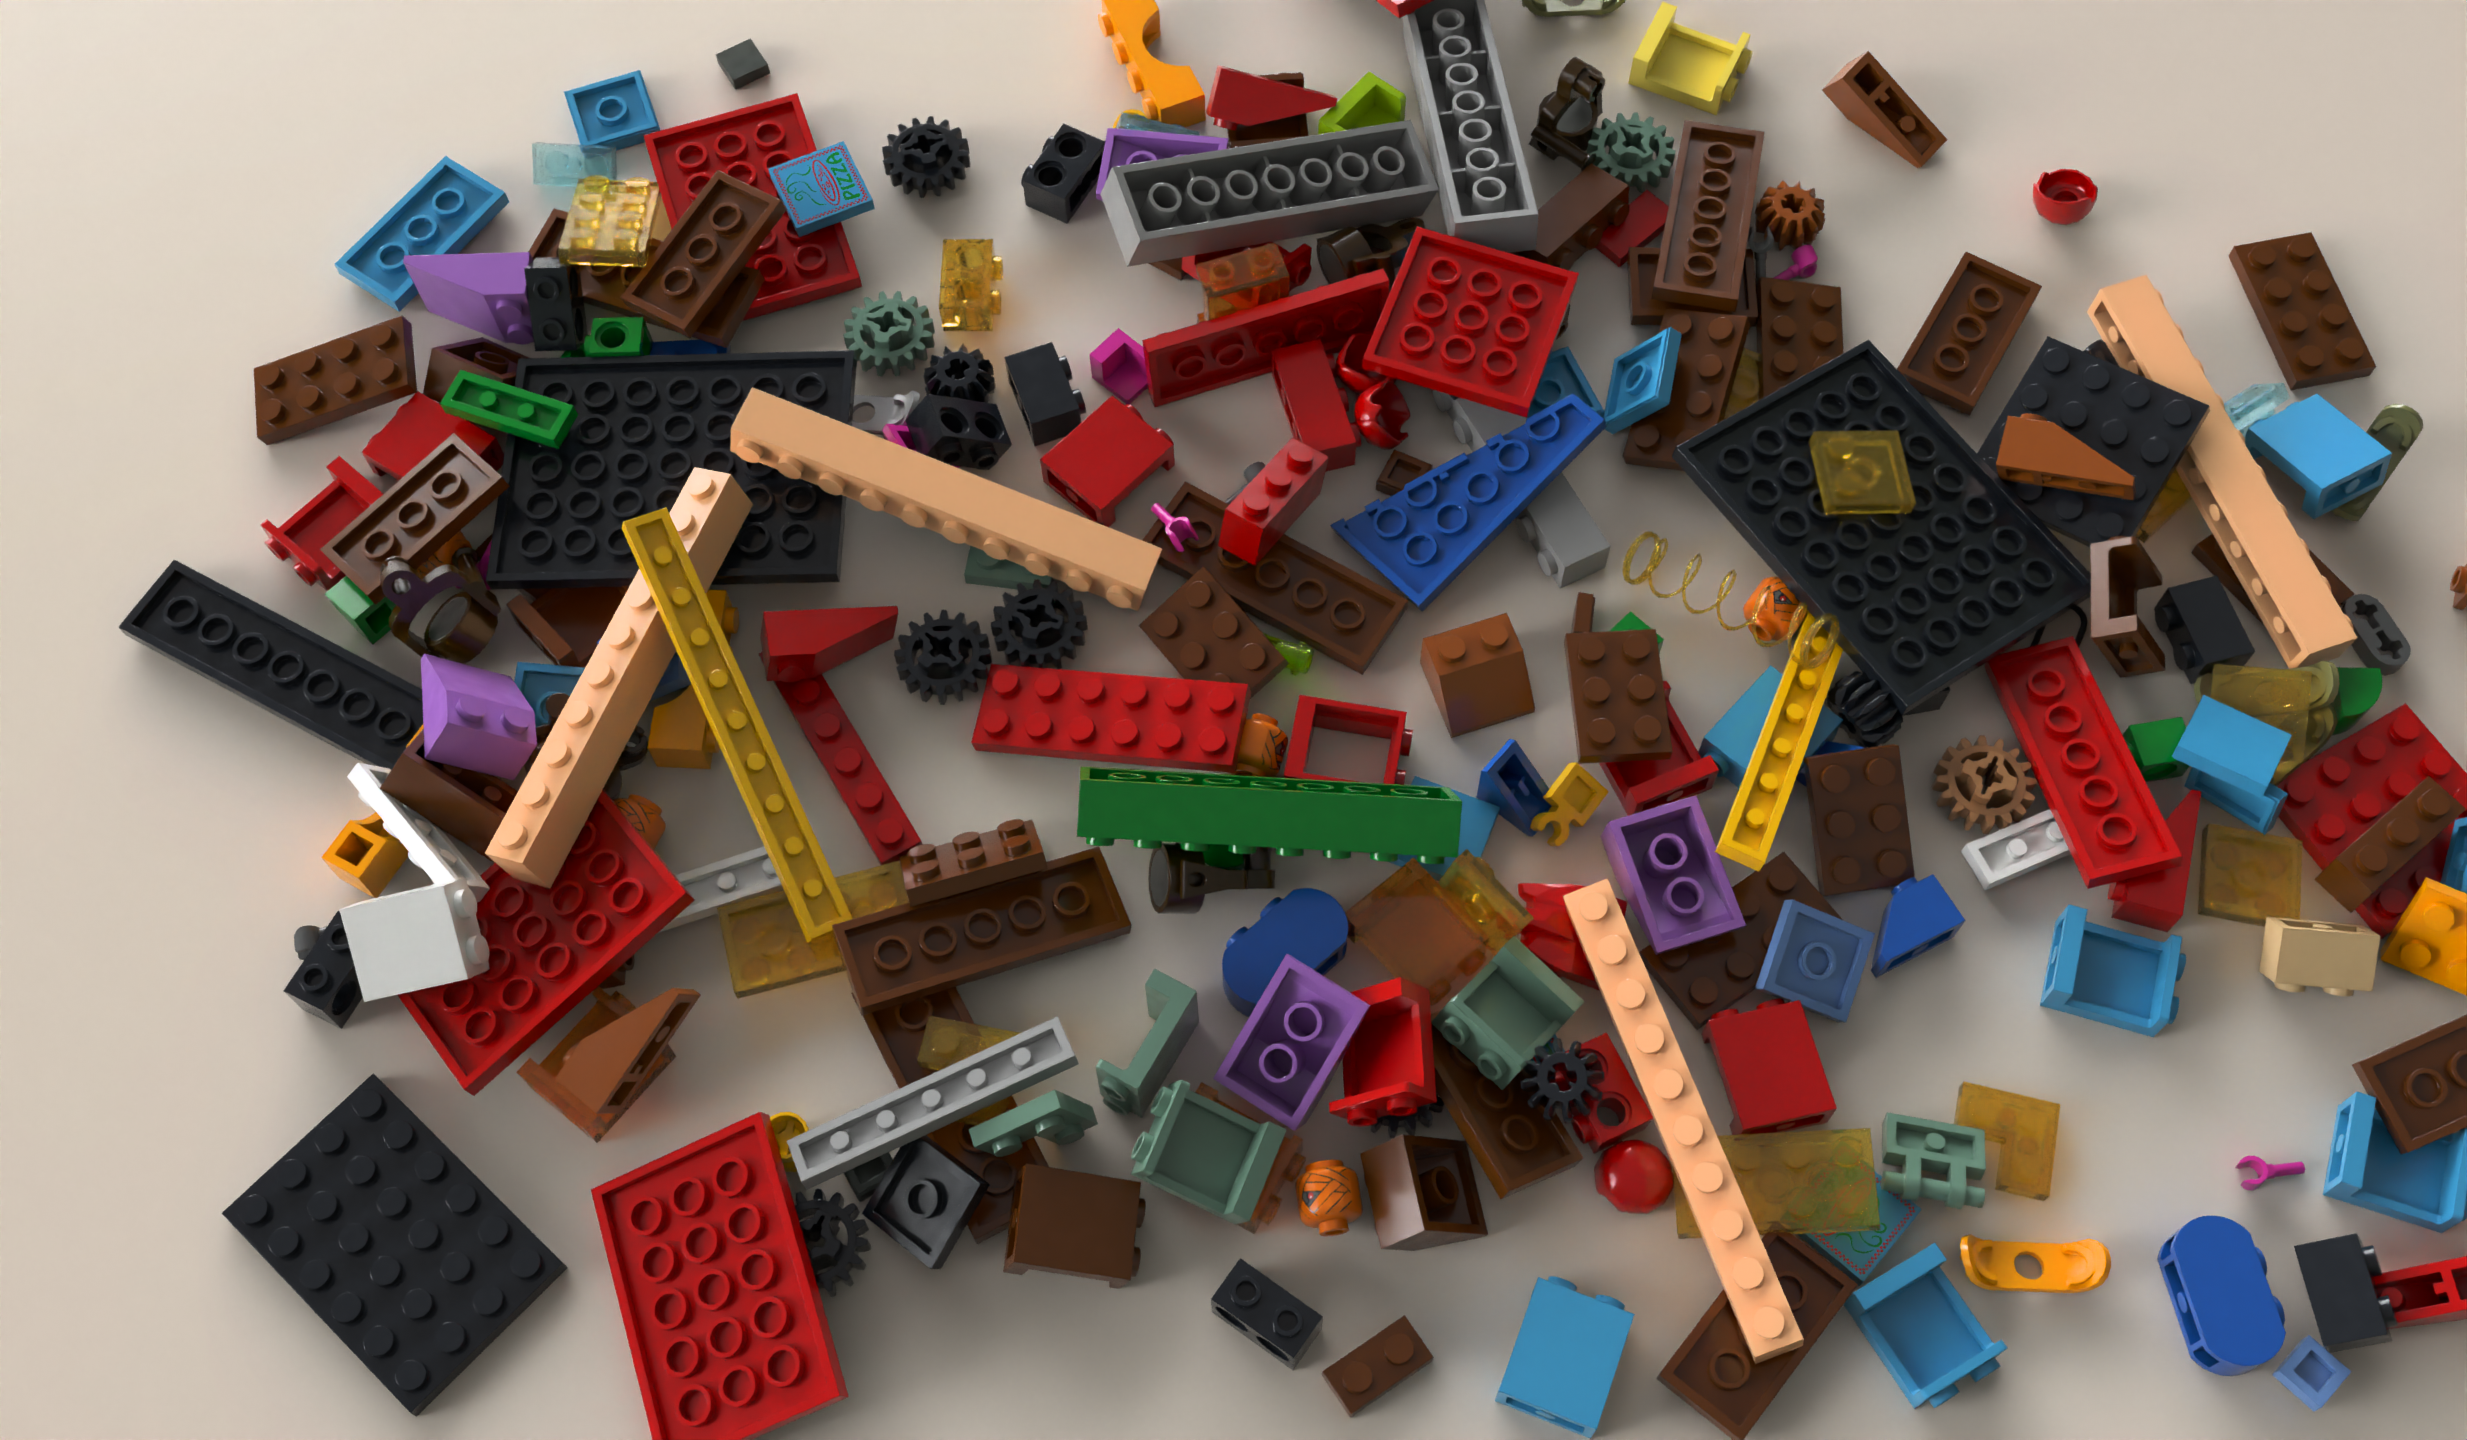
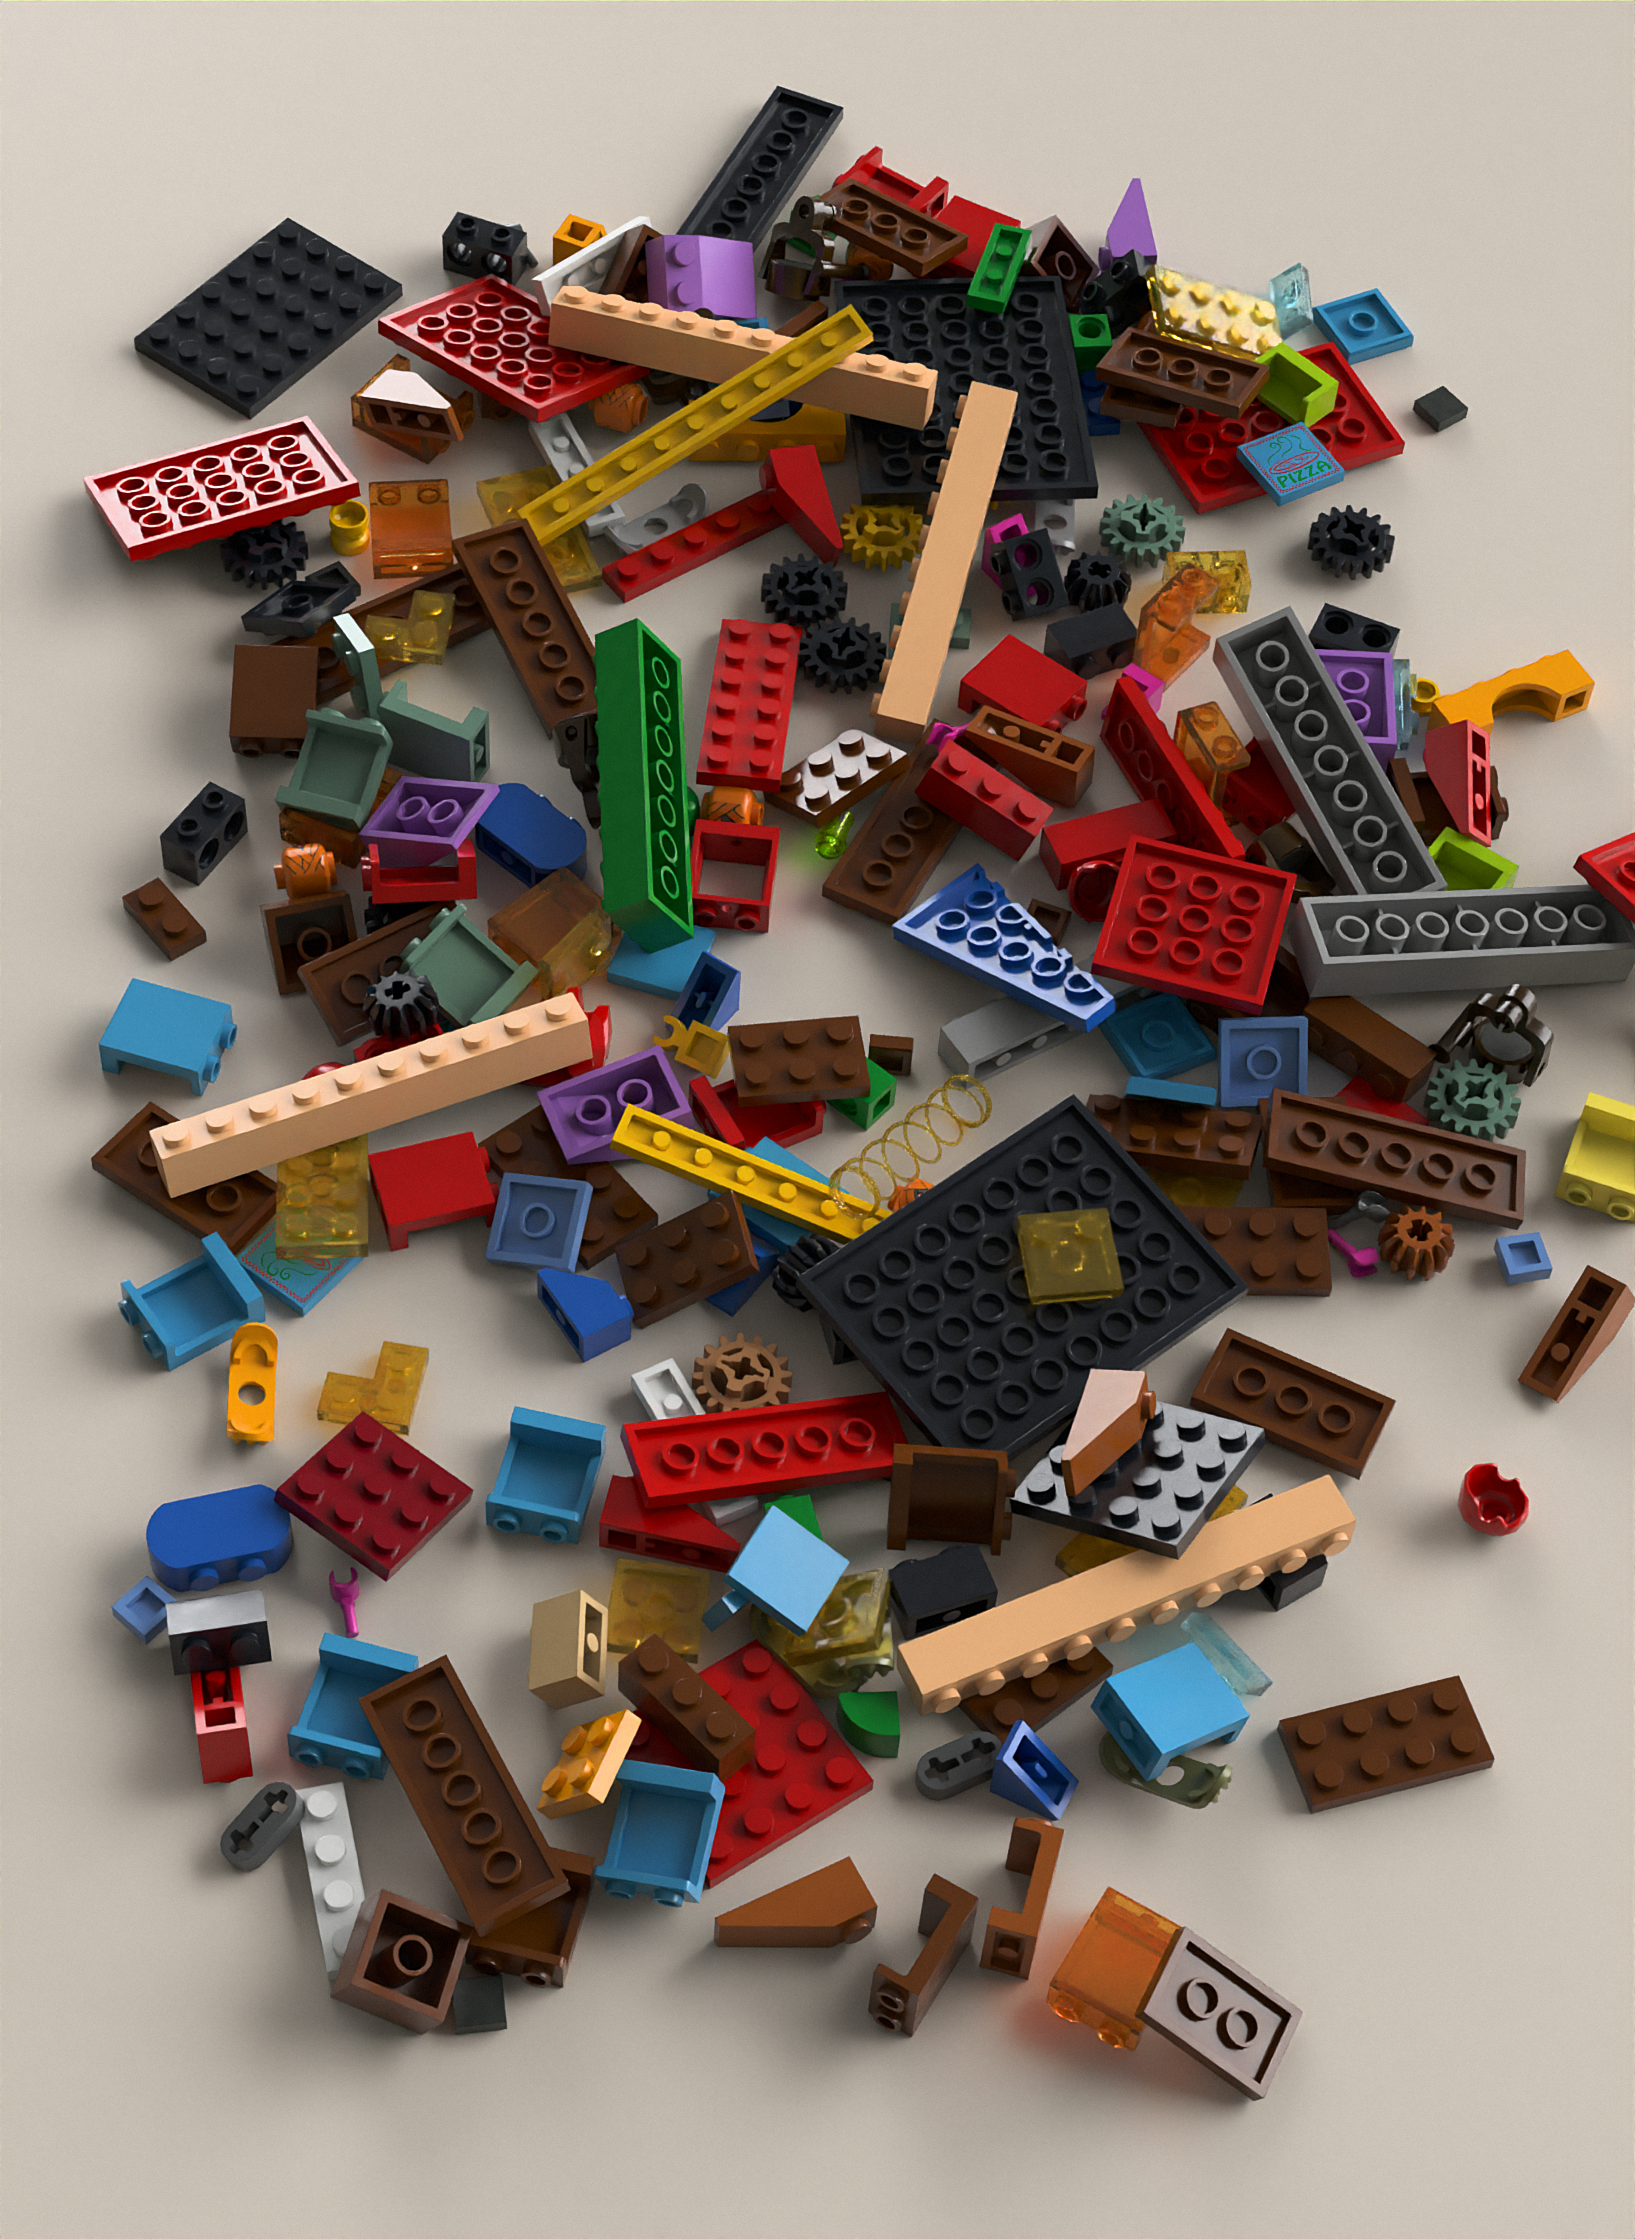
camera: 80 degrees right, 10 degrees down
(334, 380) = (1029, 174): reddish brown plate -> none
(415, 939) = (495, 267): white brick -> none
(431, 219) = (1206, 215): dark azure plate -> none
(727, 151) = (1296, 386): none -> lime panel
(796, 1070) = (410, 528): none -> clear orange panel
(837, 828) = (681, 511): none -> light grey piece
(864, 573) = (881, 534): none -> yellow gear
(931, 1103) = (371, 589): light grey plate -> none
(972, 861) = (589, 599): reddish brown plate -> none
(1045, 303) = (1165, 637): none -> clear orange panel
(1205, 452) = (1035, 755): none -> dark orange slope
(1477, 675) = (825, 972): dark orange slope -> none
(1599, 303) = (1261, 1056): none -> medium blue plate
(1799, 141) = (1523, 1258): none -> medium blue plate
(1935, 1148) = (361, 1316): sand green plate -> none
(2162, 1135) = (373, 1496): none -> dark red plate
(2382, 576) = (1032, 1774): none -> blue slope

